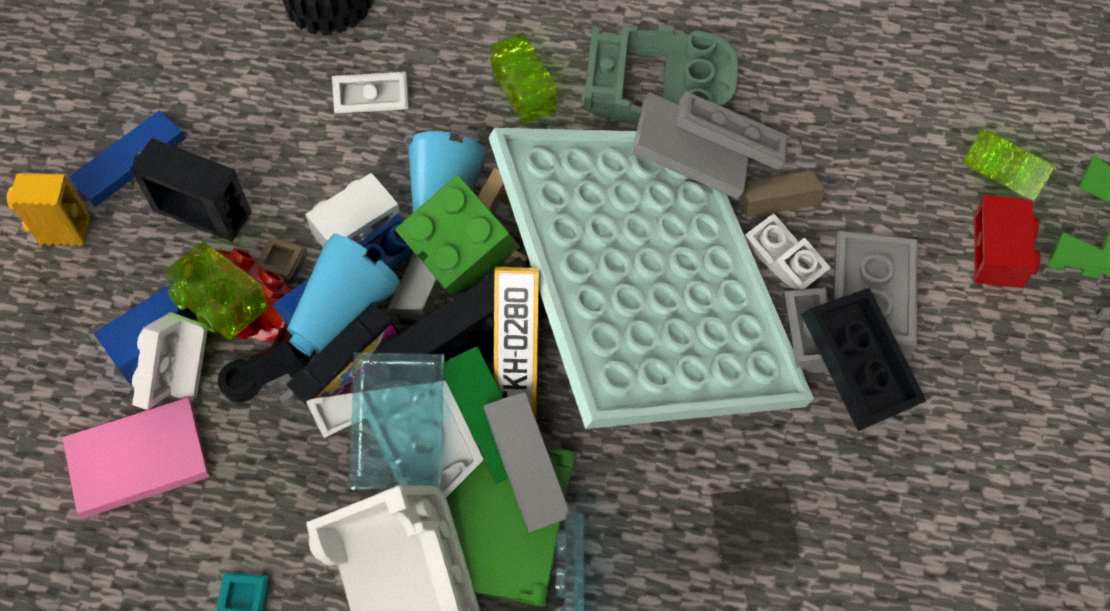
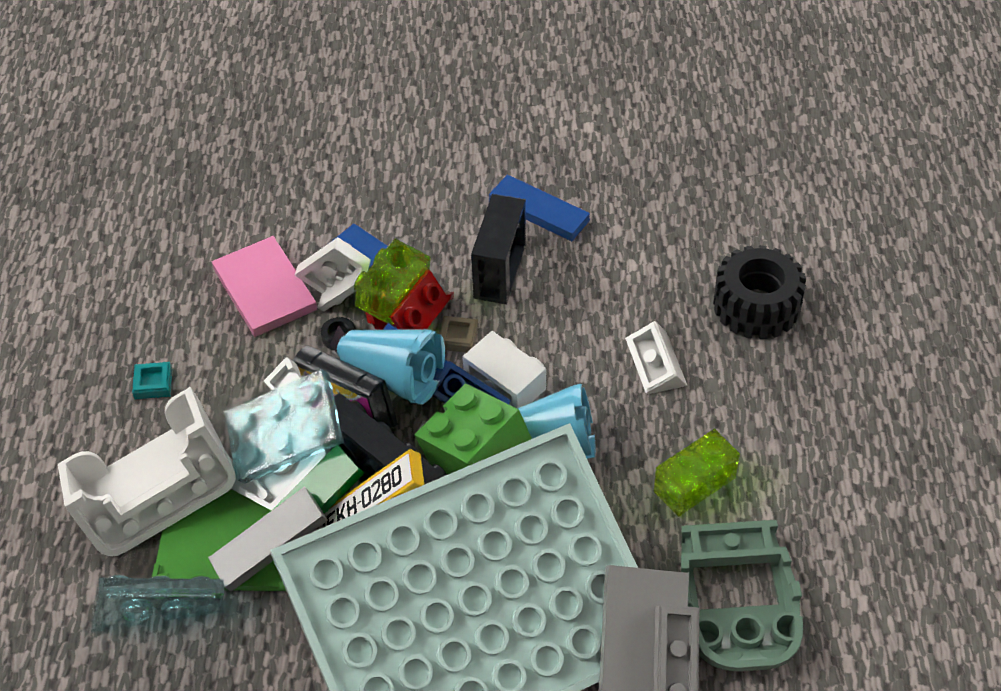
camera: 80 degrees right, 10 degrees down
(49, 208) = (462, 166): yellow brick -> none

